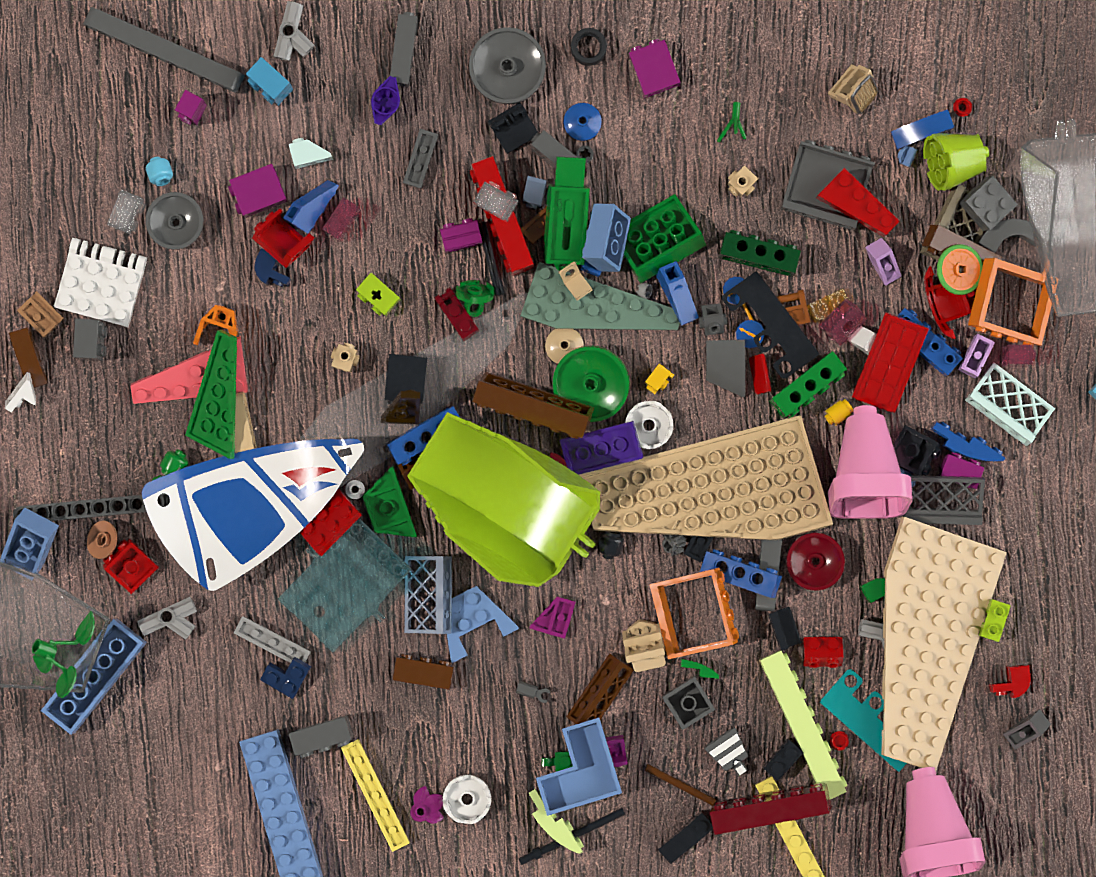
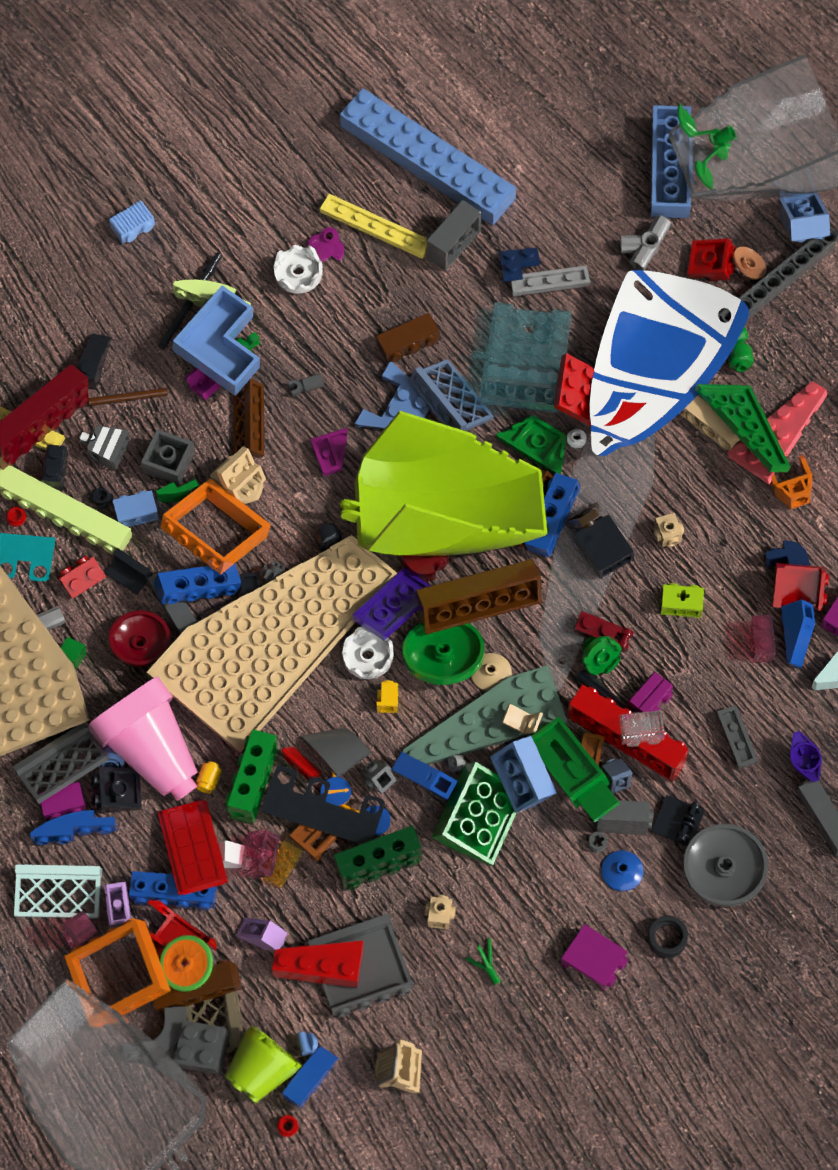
camera: 145 degrees right, 20 degrees down
(743, 678) = (136, 509): none -> medium blue brick
(757, 705) = (101, 492): none -> black plate

